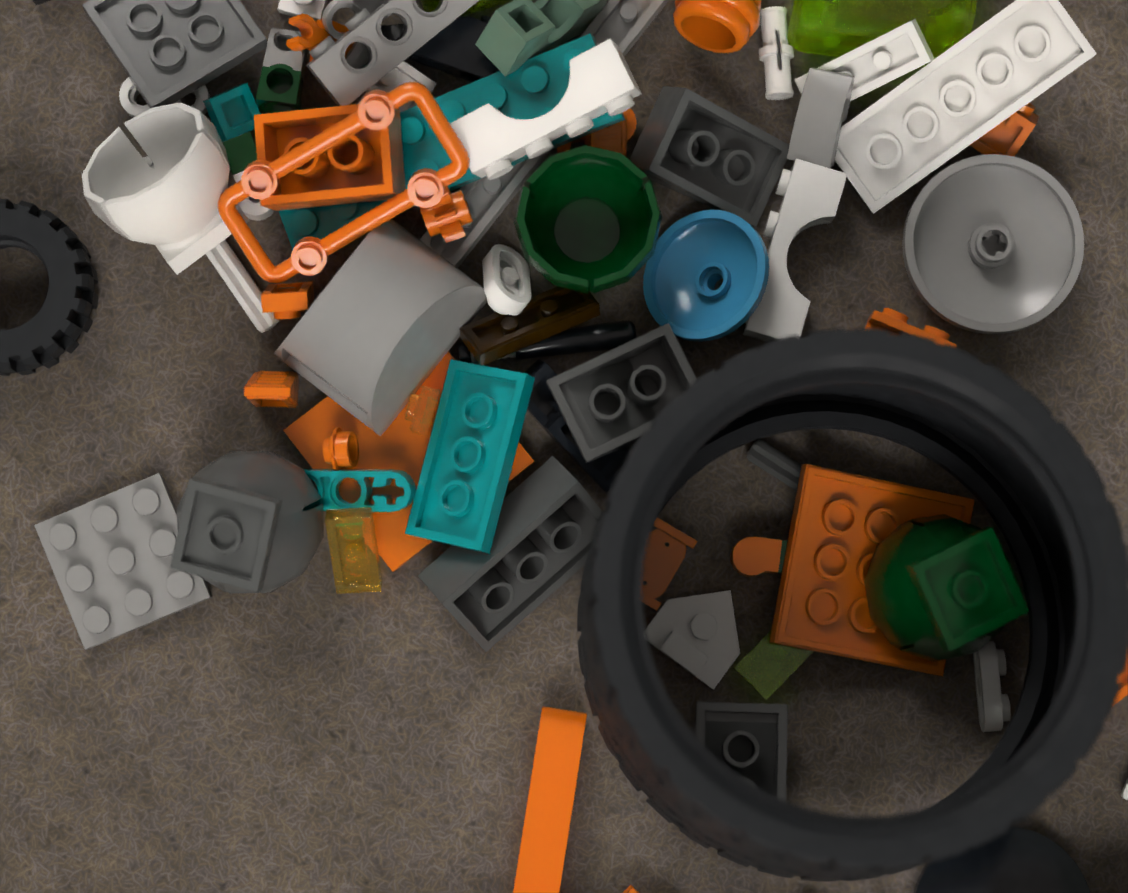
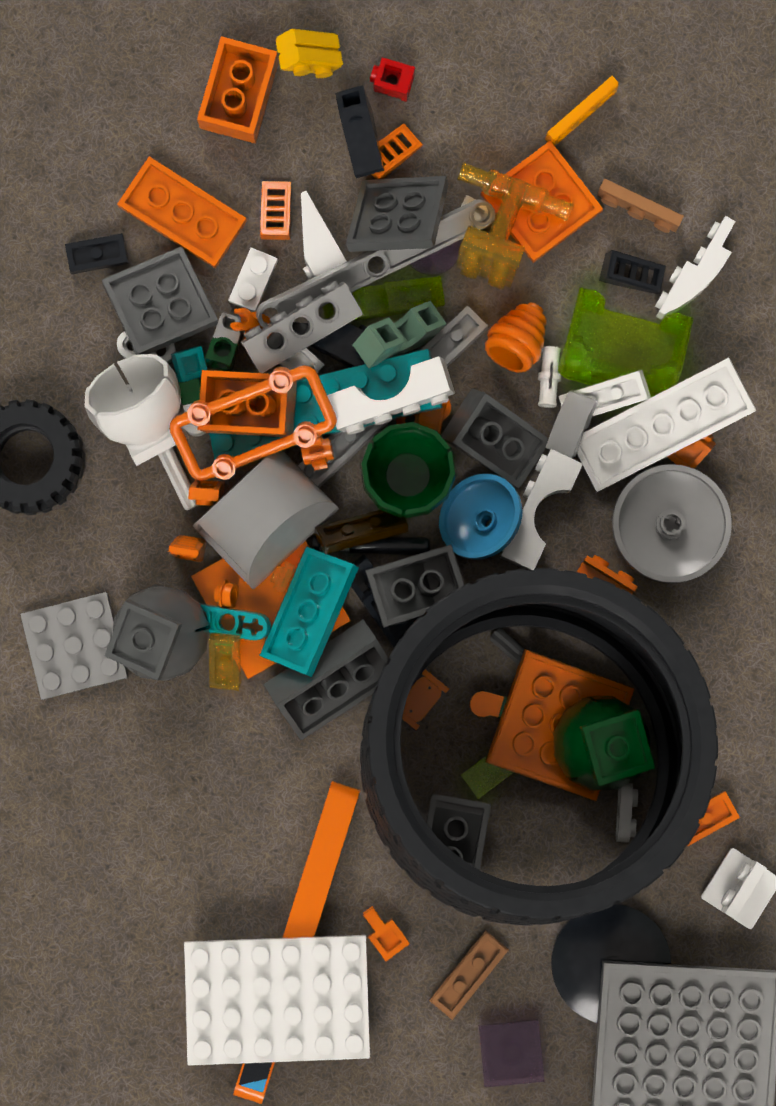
camera: 15 degrees right, 0 degrees up
(506, 280) = (350, 500): white plate -> none
(698, 634) = (440, 749): white plate -> none

